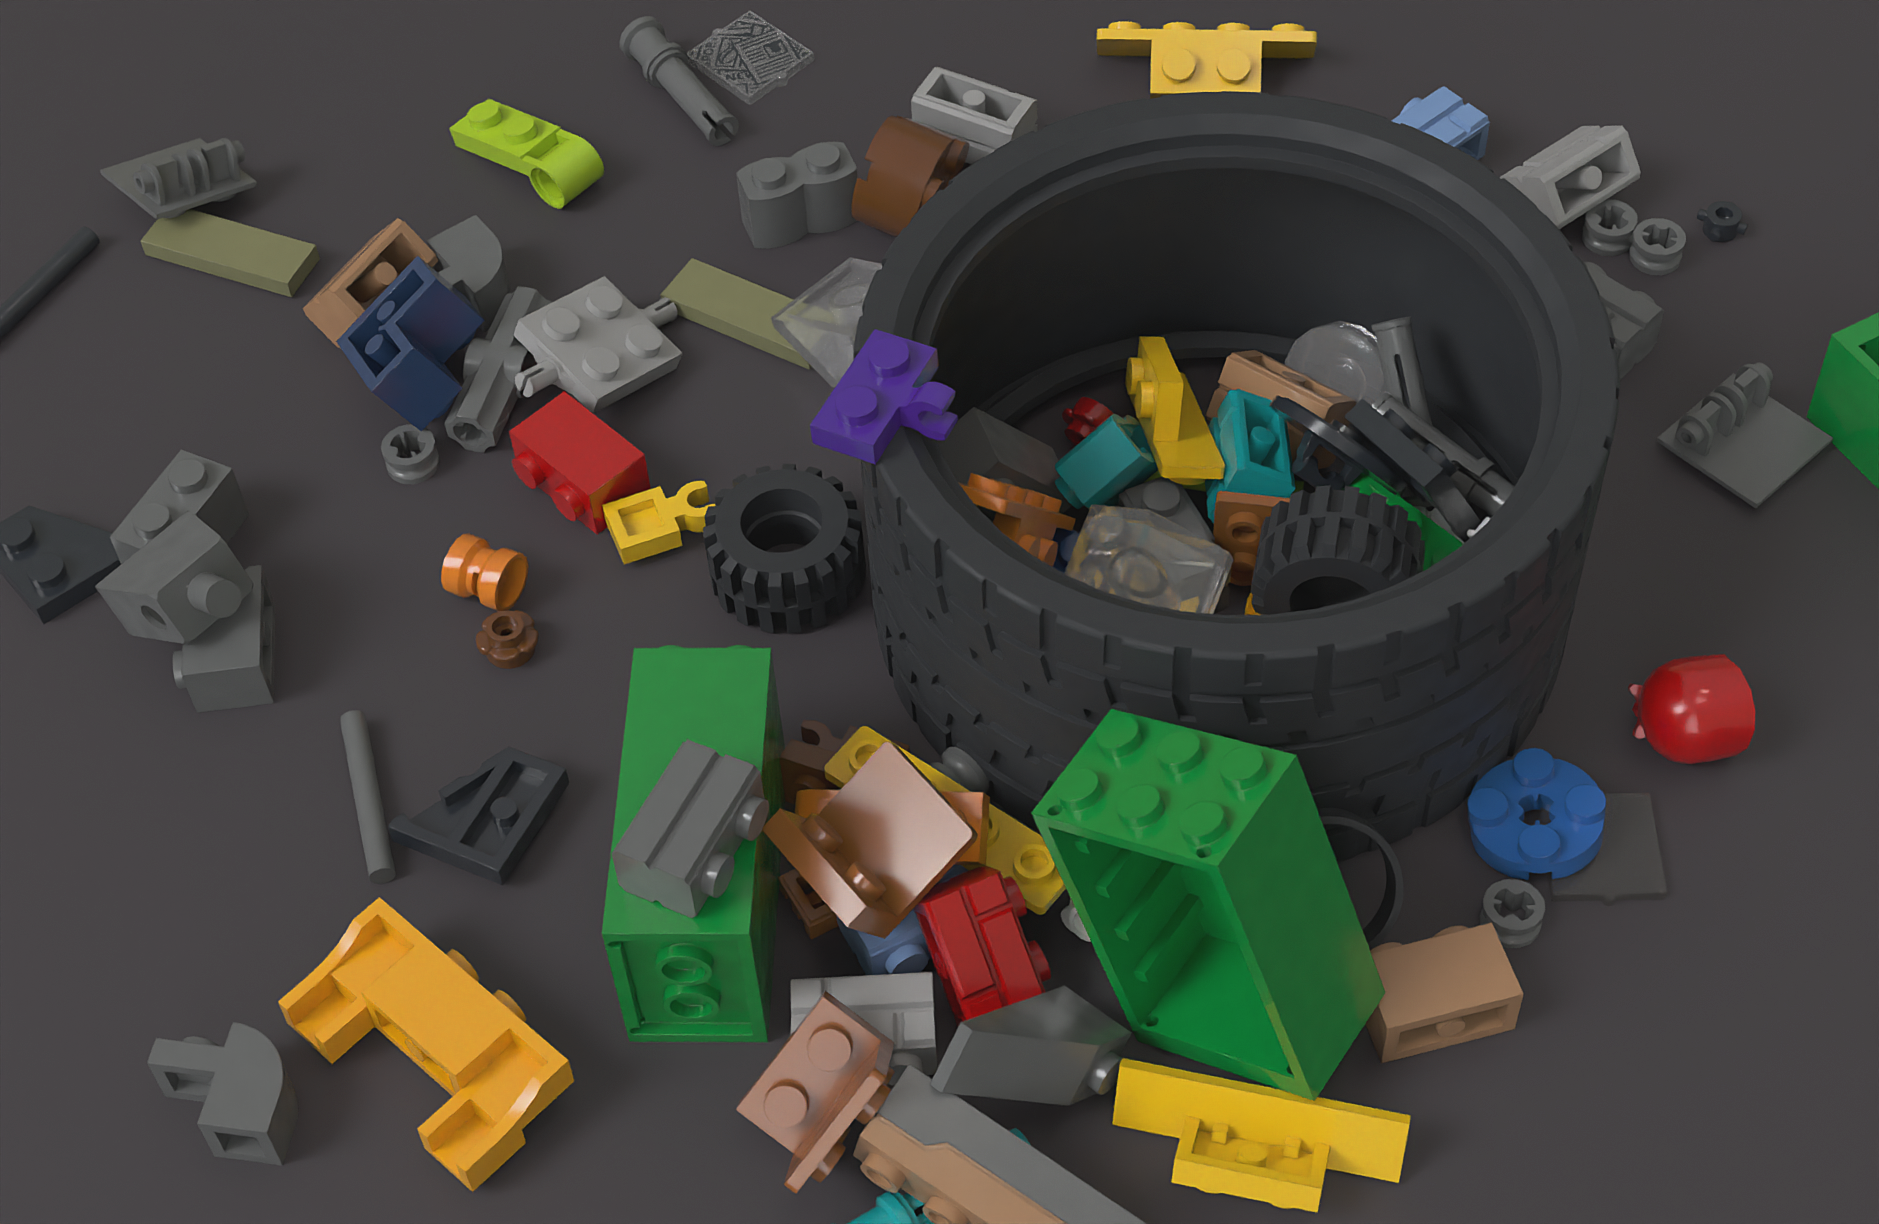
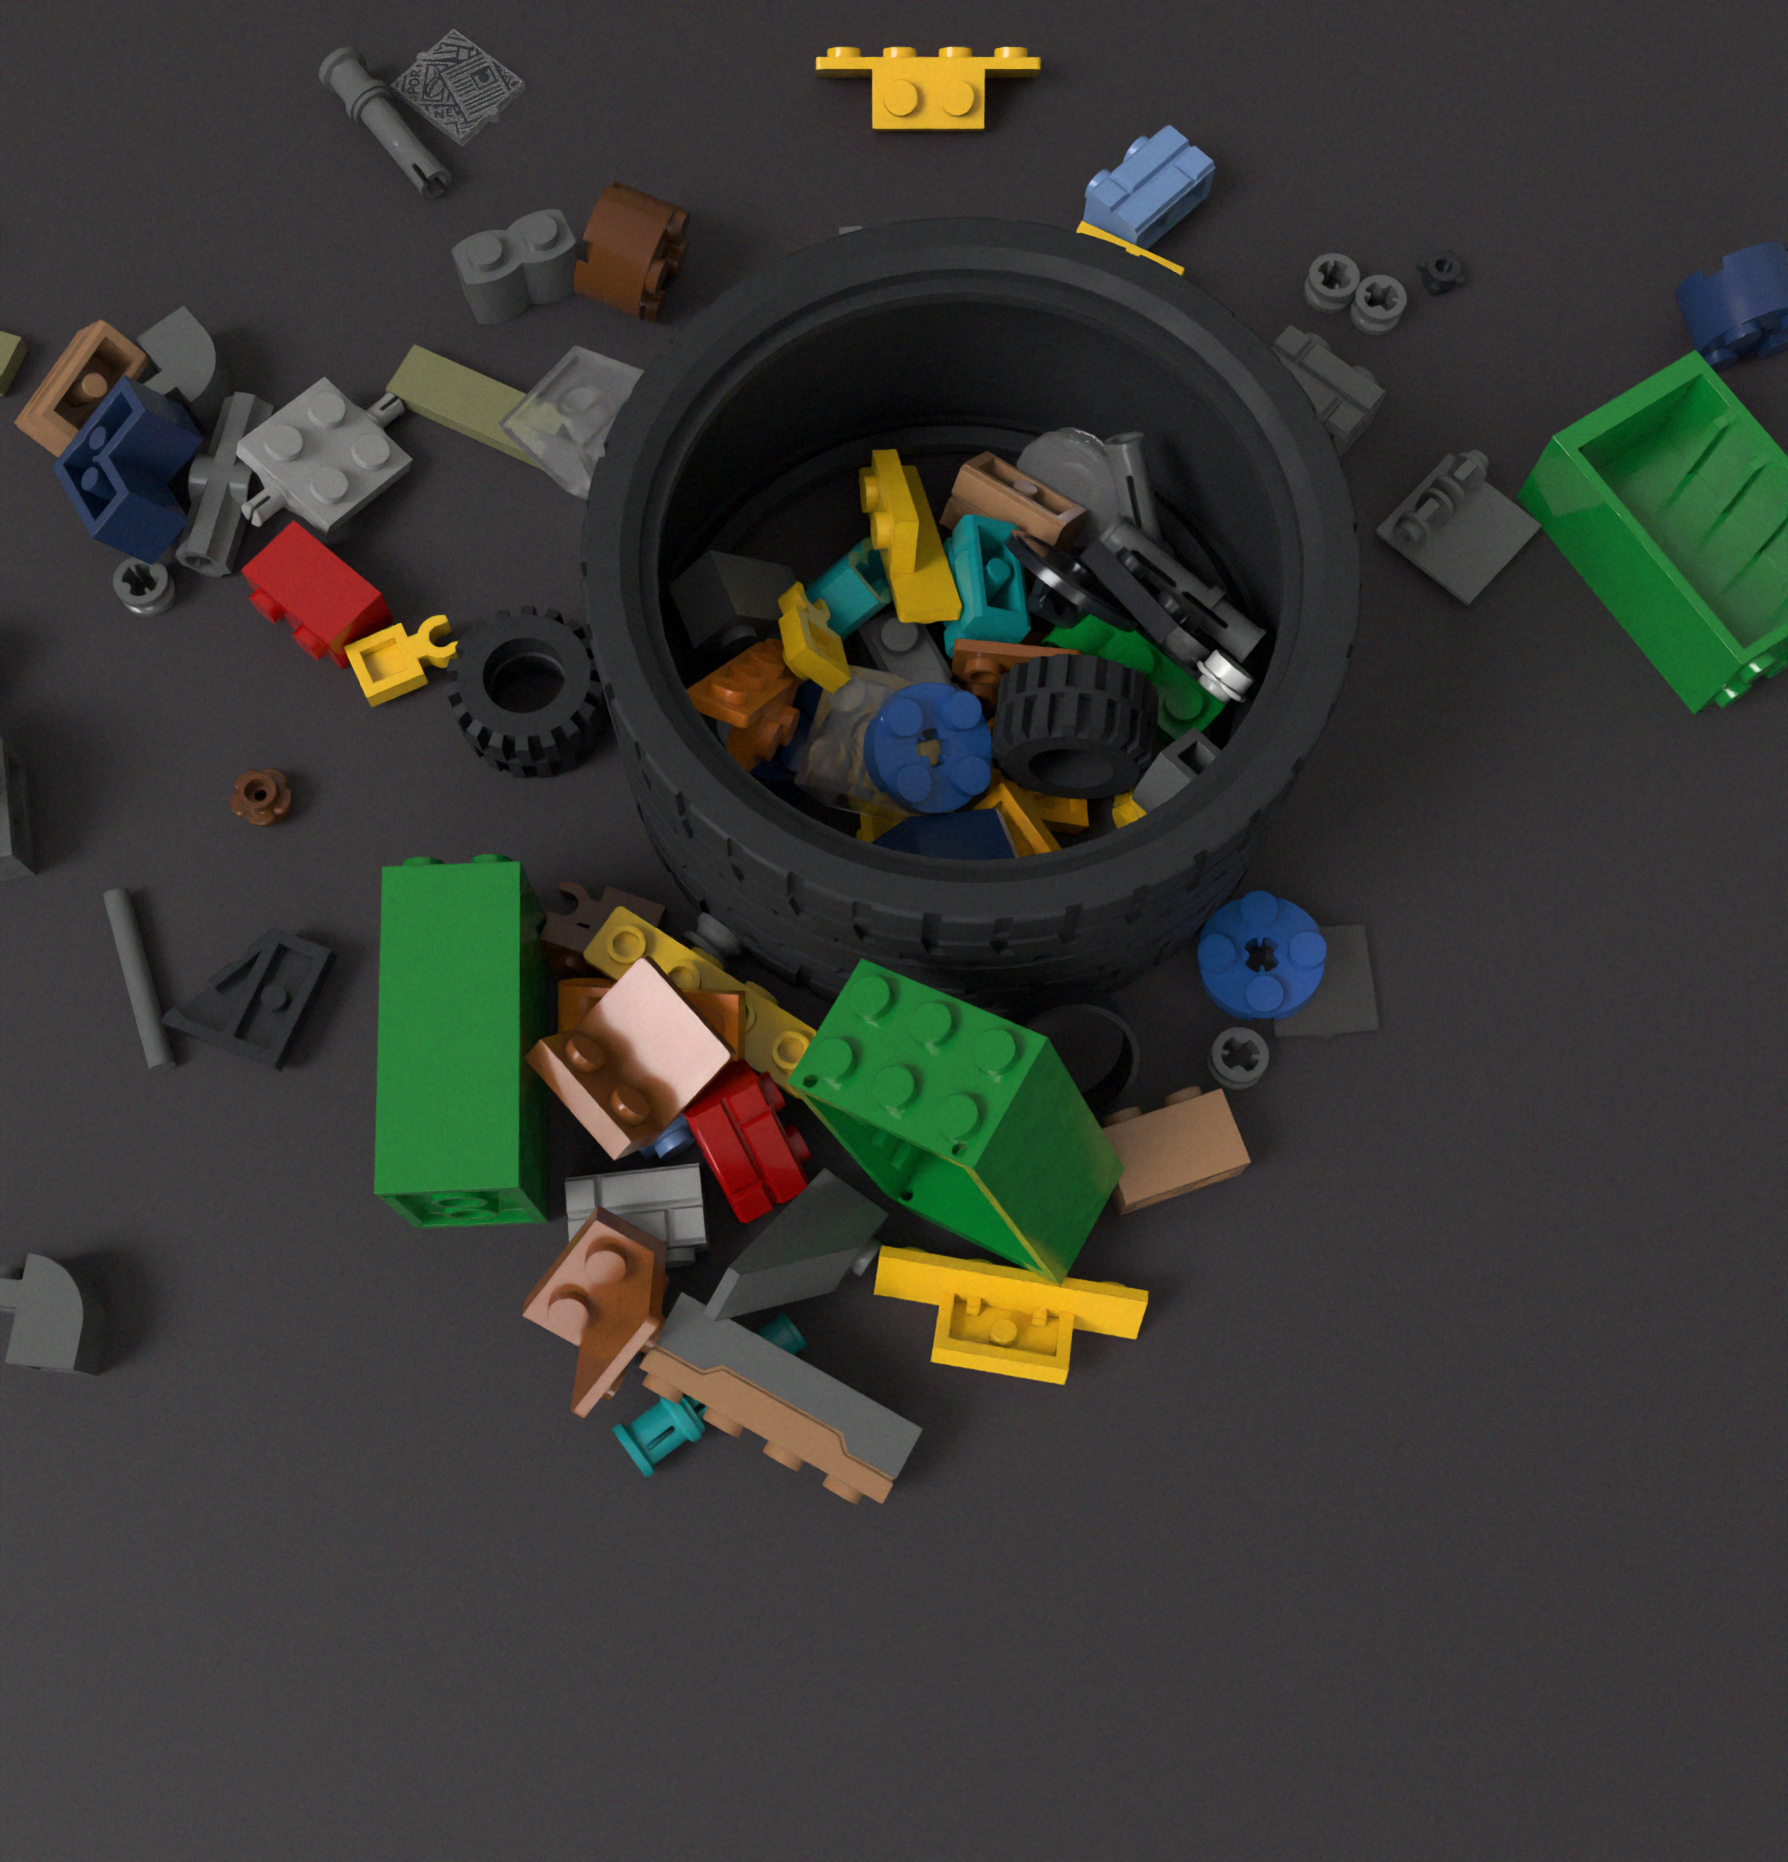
camera: 10 degrees left, 20 degrees up
(445, 1023) = (253, 1249): light orange bracket -> none
(487, 573) = (231, 727): orange wheel -> none
(554, 159) = (256, 223): lime plate -> none
(690, 829) = (453, 1086): dark grey brick -> none
(879, 394) = (611, 622): dark purple plate -> none
(973, 111) = (696, 173): light grey brick -> none
(1070, 483) = (809, 645): none -> yellow plate
(1084, 418) = (826, 533): red plate -> none
(1202, 549) = (964, 742): none -> blue plate
(1577, 172) = (1295, 230): light grey brick -> none
(1695, 709) = (1410, 843): red helmet -> none

